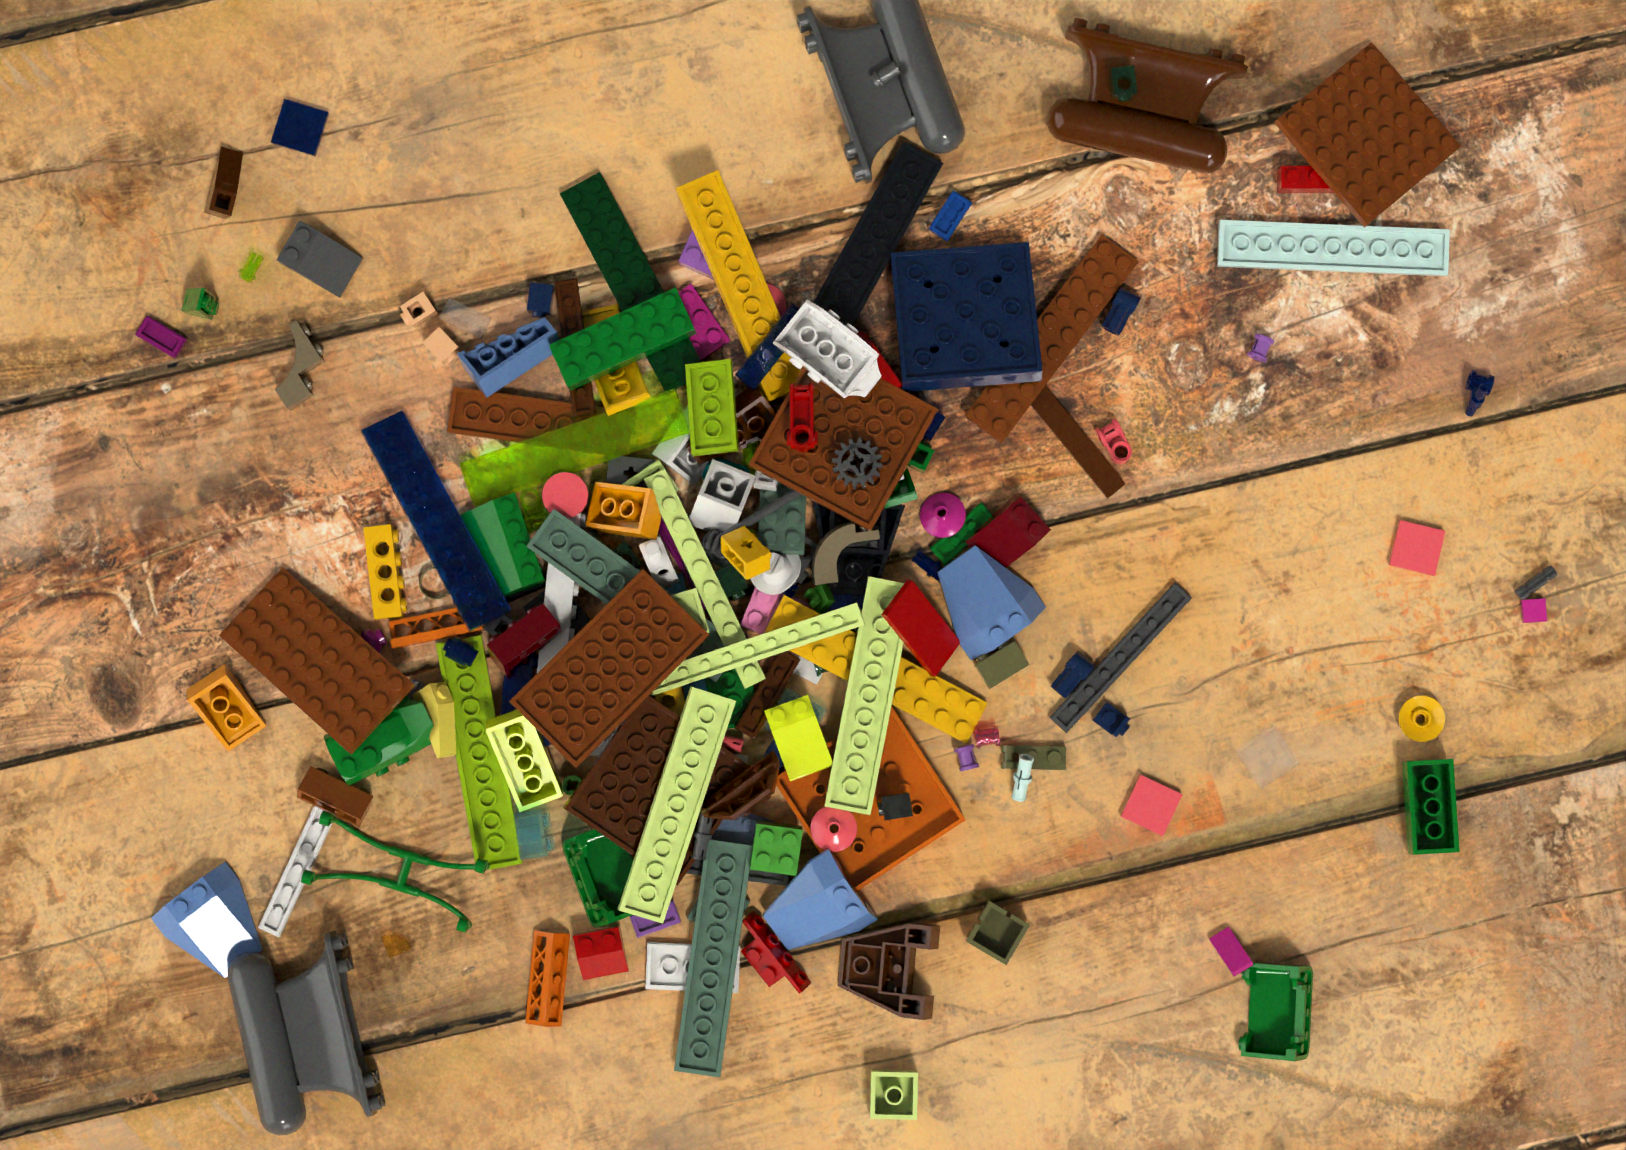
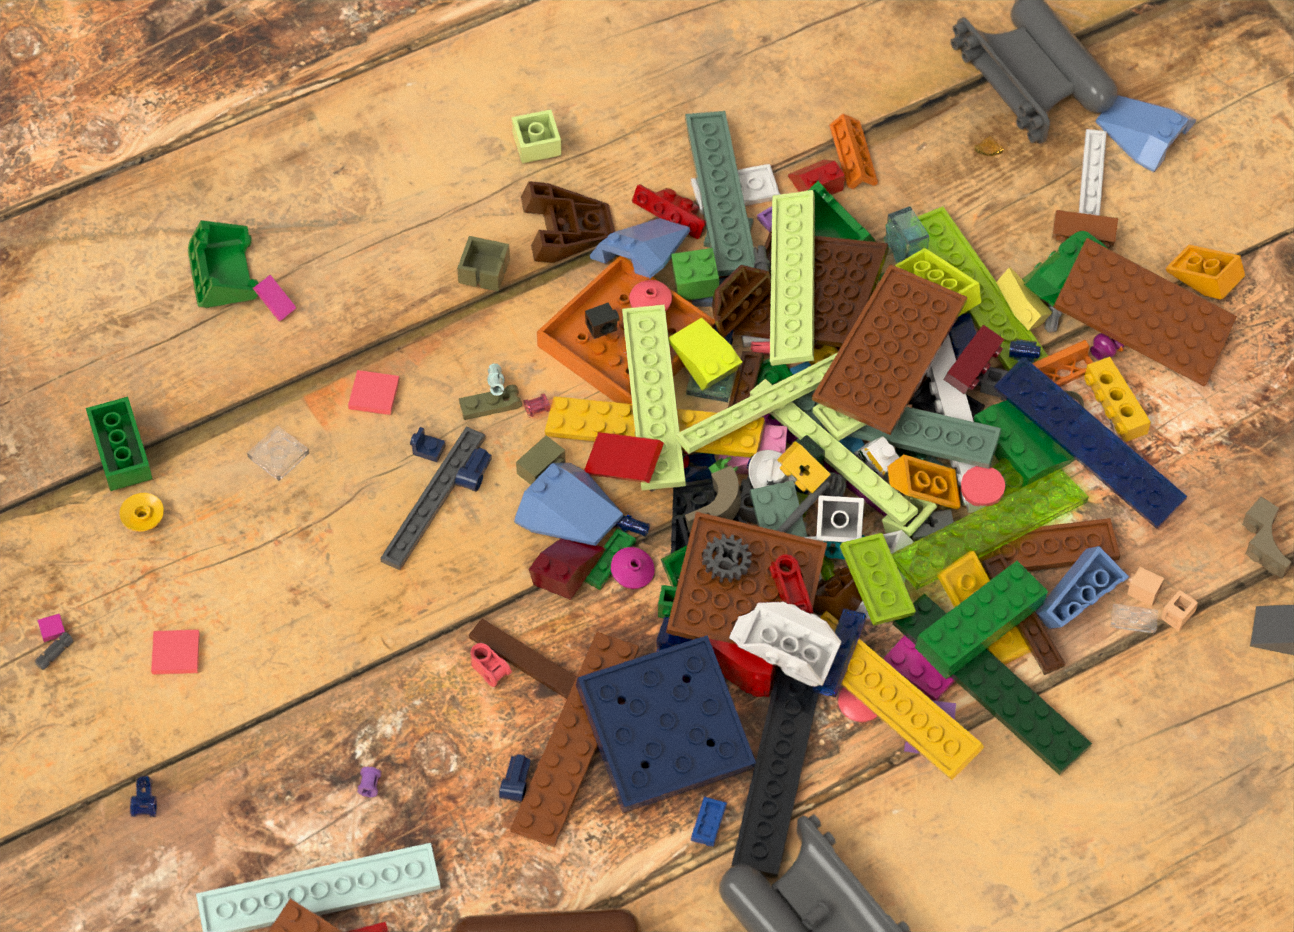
camera: 165 degrees right, 30 degrees down
(400, 885) = (1003, 186): green bar -> none
(540, 299) = (1071, 647): dark blue brick -> none
(966, 757) = (549, 385): medium lavender bush -> none

